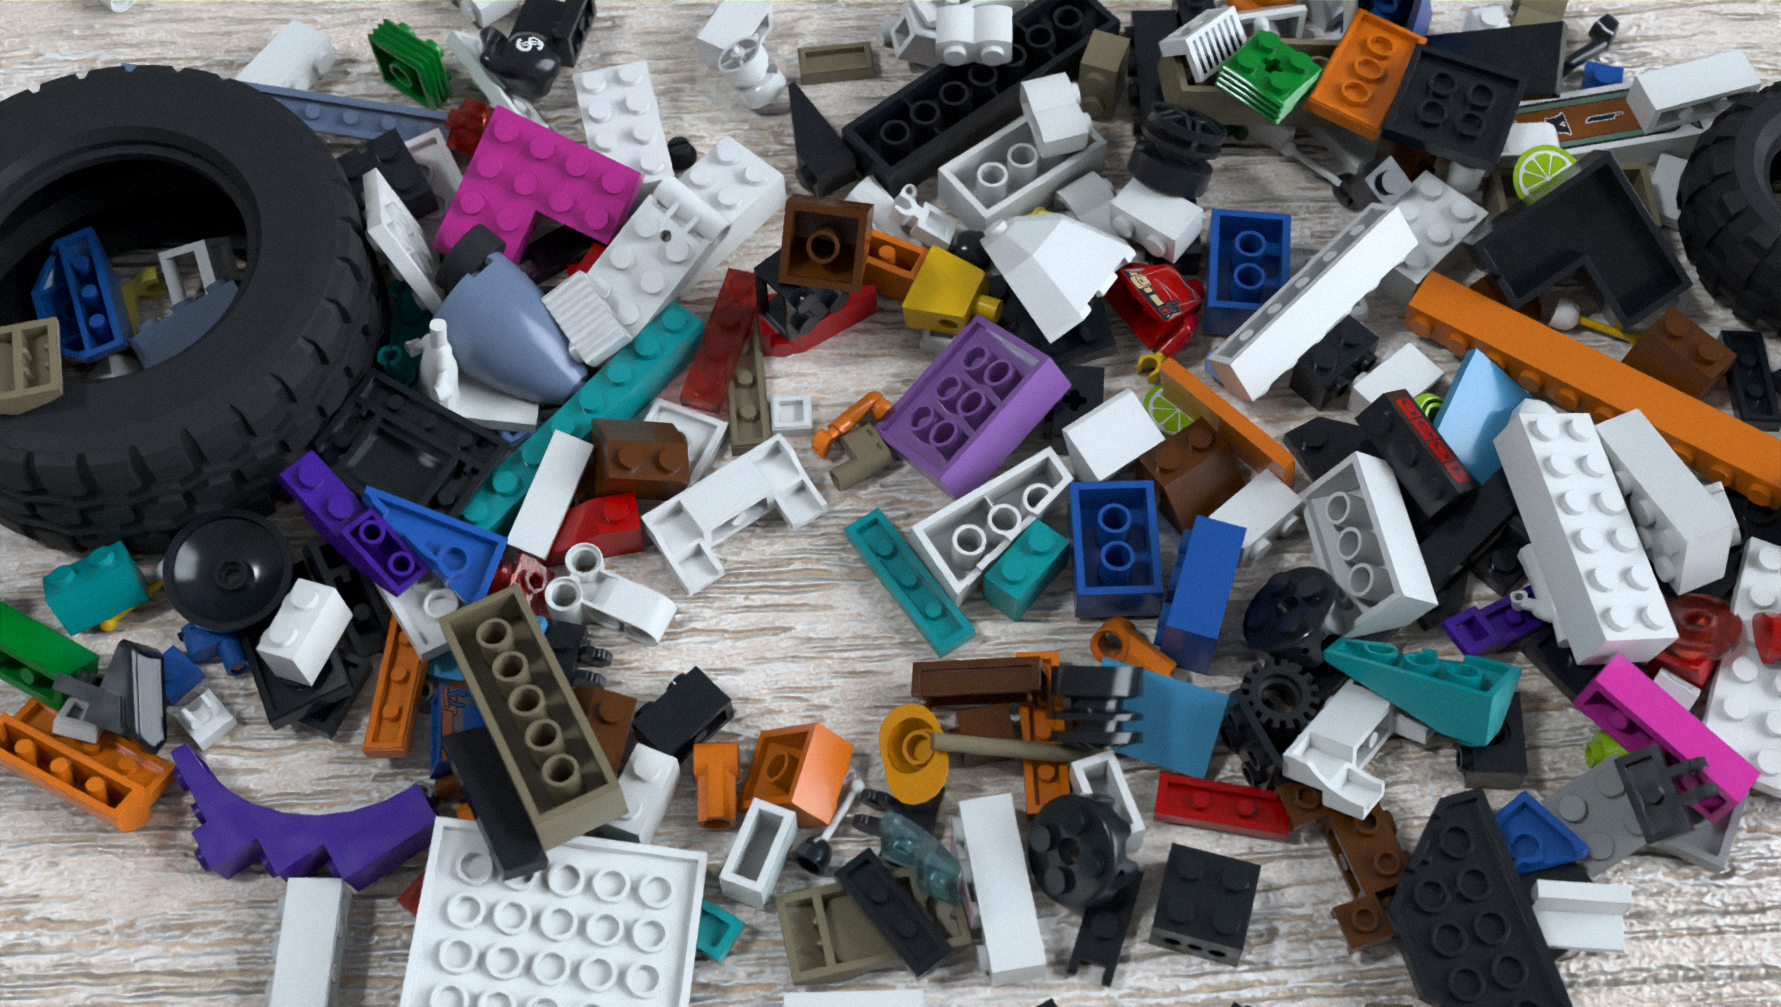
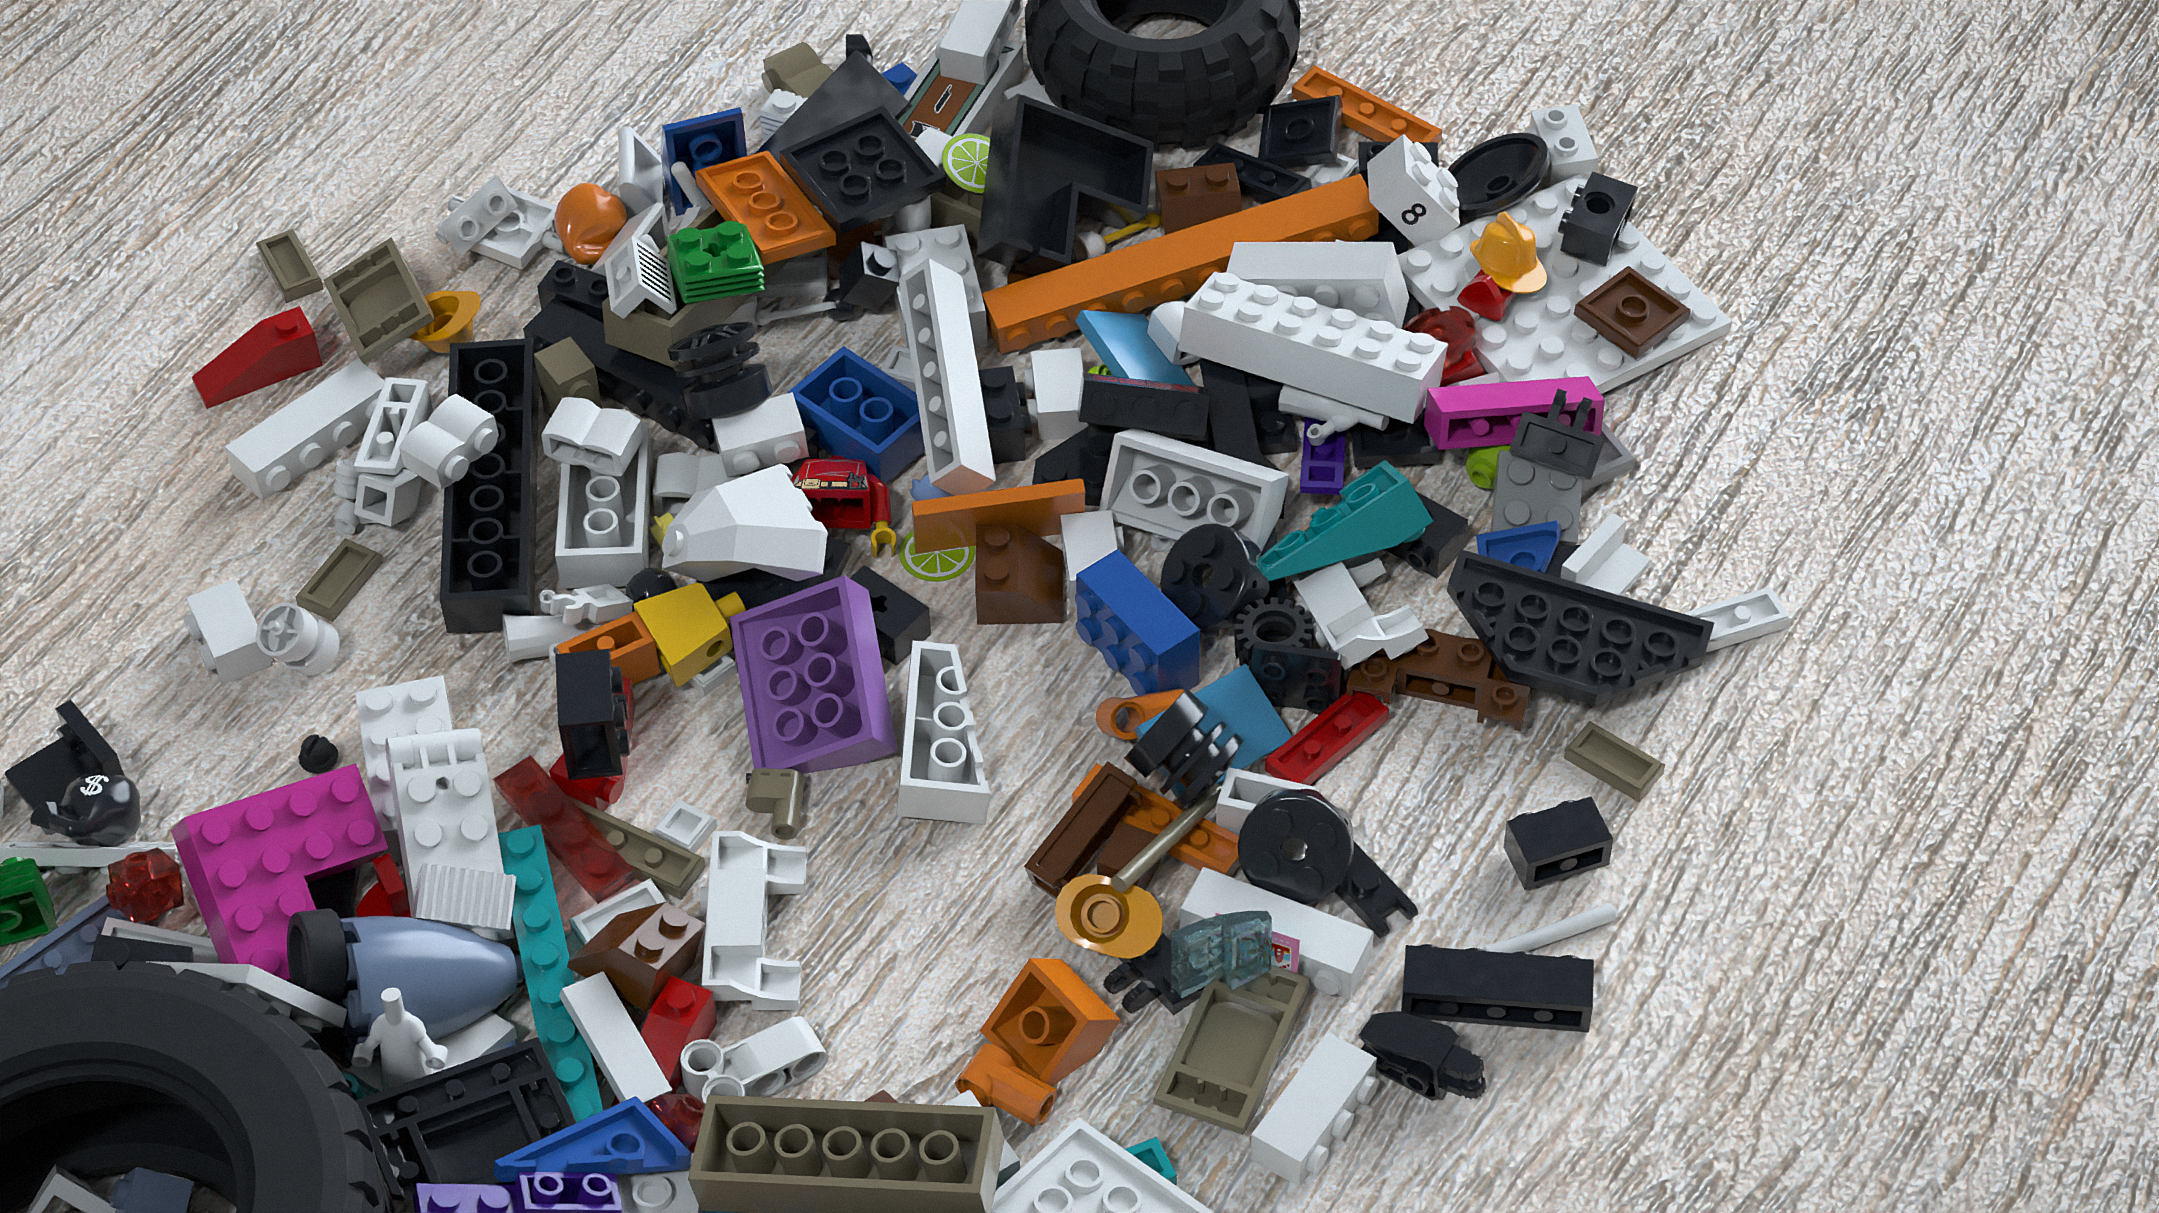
camera: 55 degrees left, 10 degrees down
(625, 122) = (234, 760): white brick -> none
(683, 715) = (919, 1064): black brick -> none
(758, 853) = (1105, 1085): white brick -> none
(816, 853) = (1132, 1050): hinge -> none
(821, 155) = (418, 641): black slope -> none
(825, 242) = (594, 650): reddish brown slope -> none
(847, 420) = (734, 757): orange arm -> none
(893, 914) = (1242, 1016): black tile -> none
(909, 583) = (935, 834): teal plate -> none
(1026, 570) = (1002, 740): teal brick -> none
(1110, 438) = (944, 597): white slope -> none
(1114, 549) = (1039, 665): blue brick -> none
(1204, 905) = (1403, 800): black piece -> none

